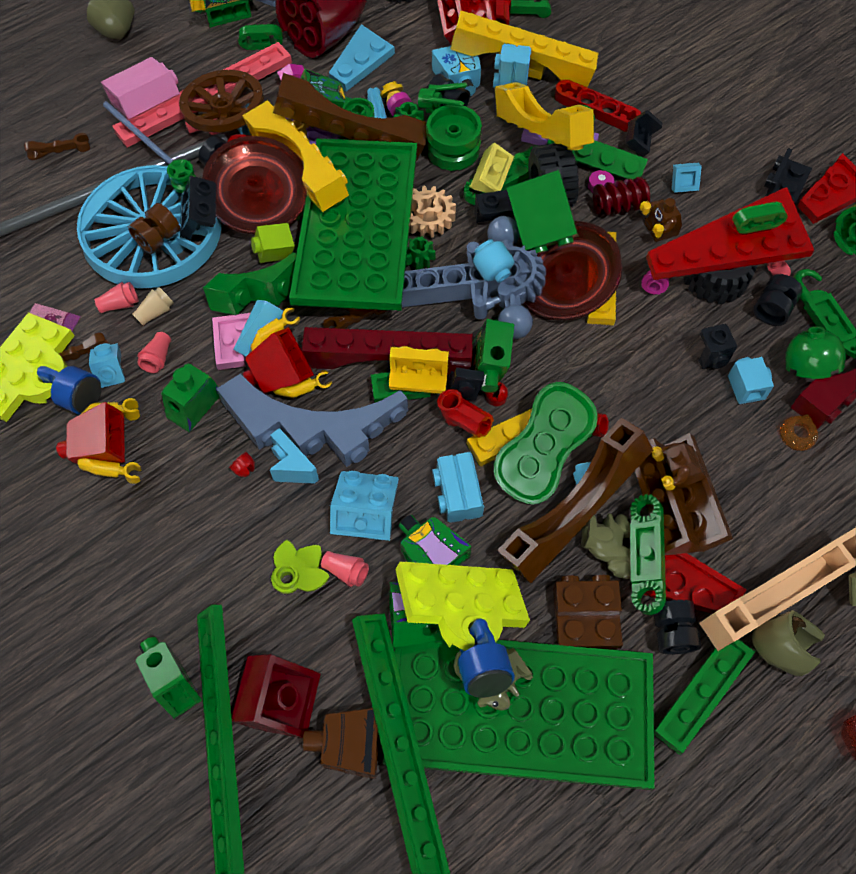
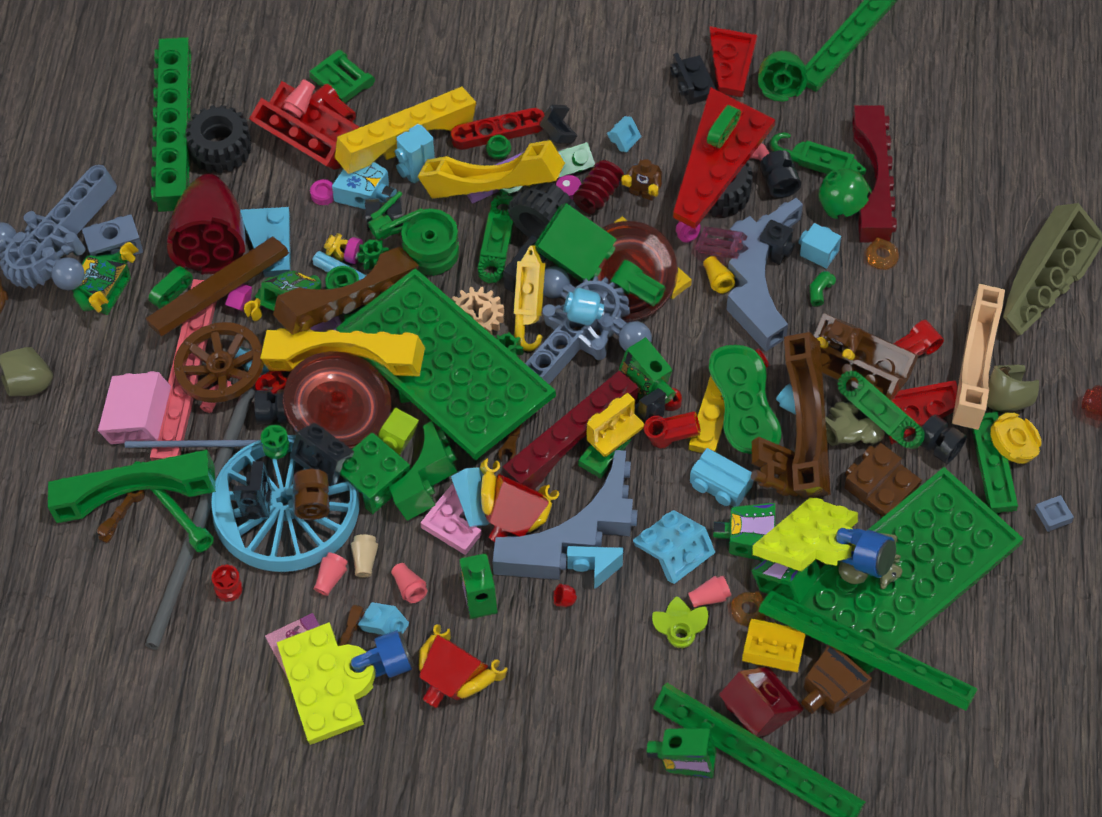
camera: 45 degrees left, 5 degrees down
(43, 113) = (78, 495): none -> green arch
(50, 245) = (222, 579): none -> red wheel
(69, 200) = (198, 537): none -> green piece
(119, 193) = (255, 497): none -> black bracket
(221, 251) = (373, 471): none -> green bracket
(282, 54) = (217, 286): none -> reddish brown tile
(336, 662) = (773, 645): none -> yellow bracket
(357, 597) = (737, 612): none -> clear orange piece
(425, 55) = (322, 192): none -> dark pink tile
(473, 223) = (528, 295): none -> yellow plate
(492, 169) = (487, 243): light yellow slope -> none
(509, 505) = (773, 459): none -> reddish brown plate
(559, 278) = (634, 281): none -> green piece
(639, 336) = (719, 276): none -> yellow cone
(670, 349) = (750, 299): none -> sand blue arch
(672, 318) = (729, 253): none -> clear pink tile
(711, 793) = (1054, 513): none -> sand blue plate
(724, 409) = (817, 286): none -> green arm
(747, 691) = (1015, 438): none -> yellow tile
(755, 529) = (921, 339): none -> red piece

